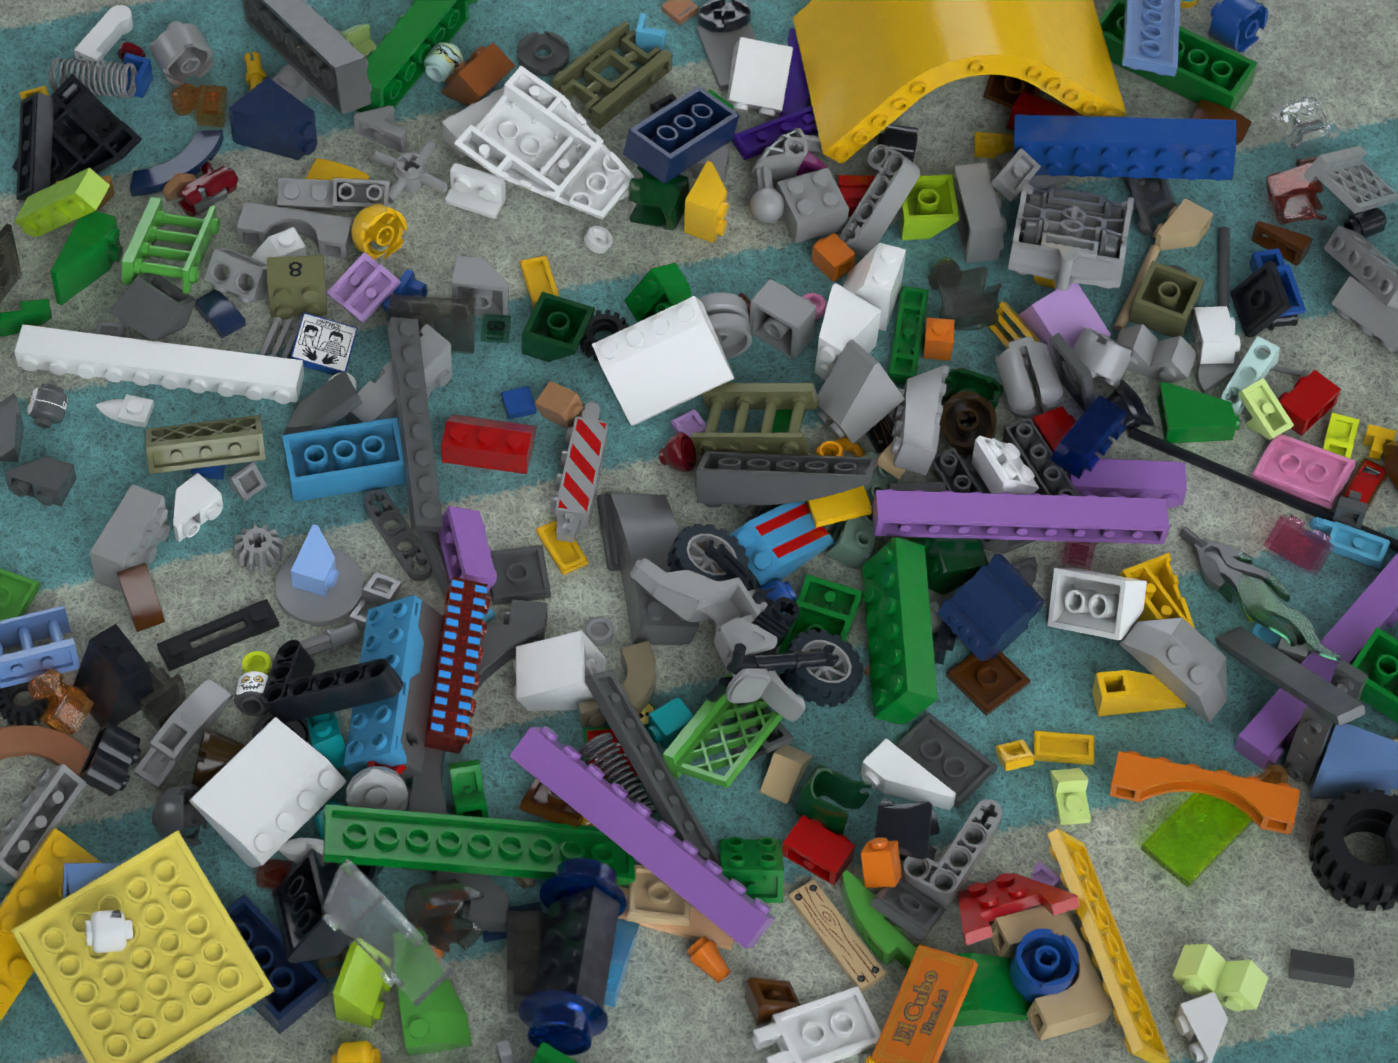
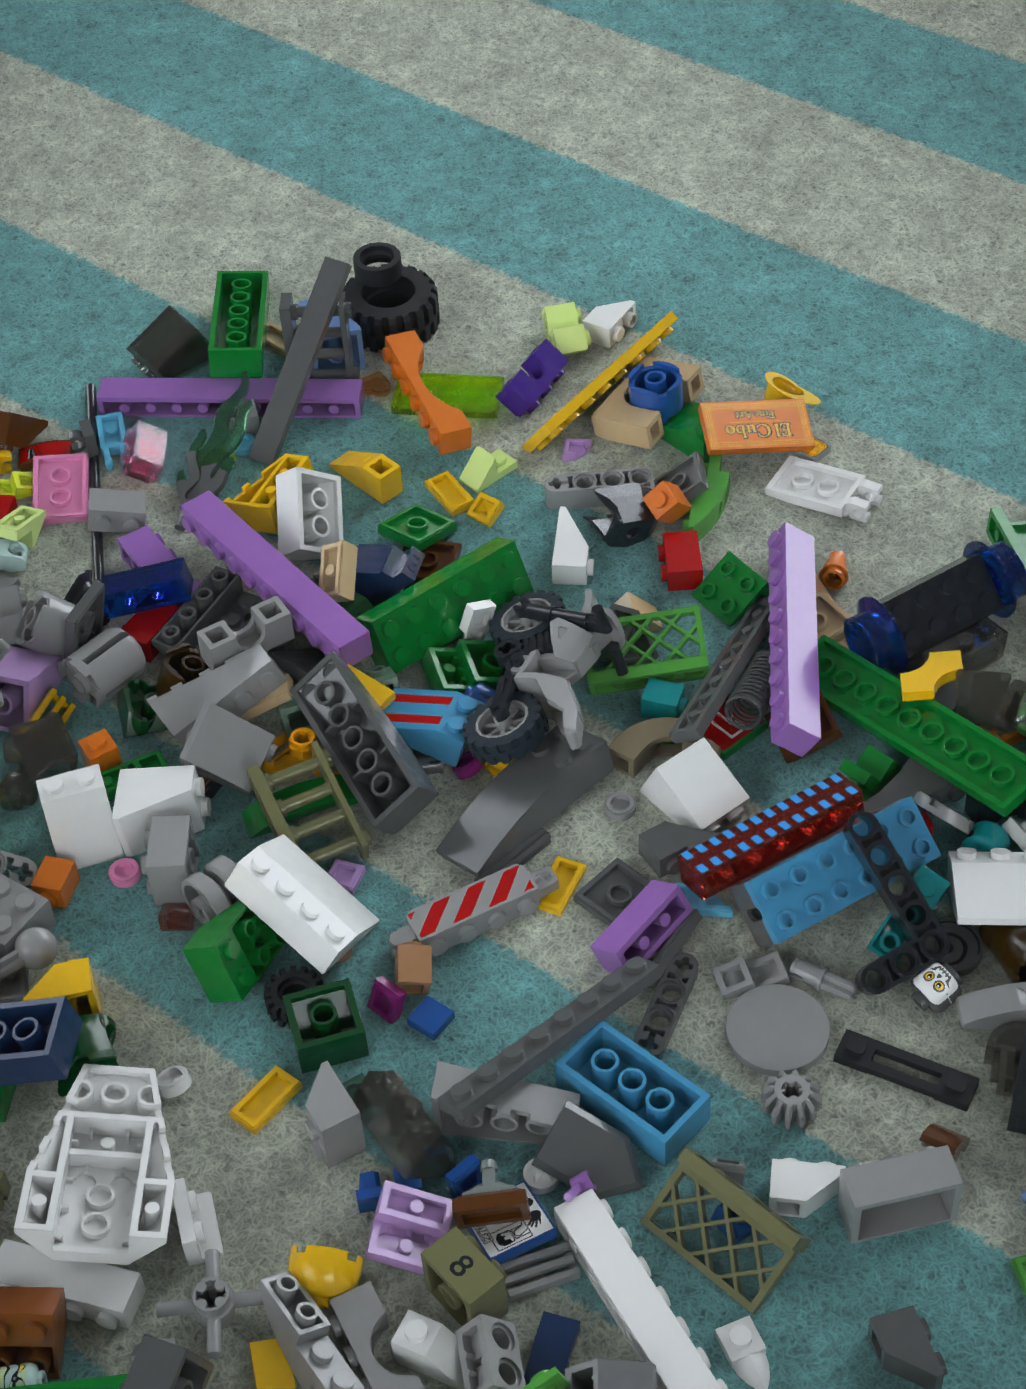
camera: 120 degrees left, 10 degrees down
(257, 661) = (903, 1018): neon yellow tile -> none
(305, 383) = (579, 1185): none -> medium lavender hand
(315, 565) = (768, 1028): light blue slope -> none
(338, 332) = (490, 1201): none -> reddish brown piece
(373, 340) = (464, 1176): none -> blue tile
(488, 443) = (495, 999): red slope -> none
(502, 896) = (926, 680): none -> yellow tile
(558, 378) = (386, 999): none -> magenta tile
(679, 453) = (387, 857): dark red brick -> none
(769, 997) = (831, 520): reddish brown slope -> none
(837, 935) = (736, 520): tan tile -> none
(838, 788) = (628, 568): dark green piece -> none
(861, 636) = (476, 619): none -> white plate
(947, 757) = (534, 541): dark grey tile -> none
(957, 450) = (269, 626): none -> light grey arch
(980, 555) = (338, 570): none -> tan slope
(1002, 467) = (232, 608): white slope -> none
(1006, 896) = (619, 444): red wing -> none
(1031, 689) = (417, 527): none -> green tile
(1147, 878) = (543, 367): none -> dark purple arch
(1181, 662) = (322, 445): light grey wedge -> none
(1194, 416) = (55, 563): green slope -> none
(1230, 486) = (116, 510): none -> light grey brick
(1321, 968) = (502, 301): dark grey slope -> none

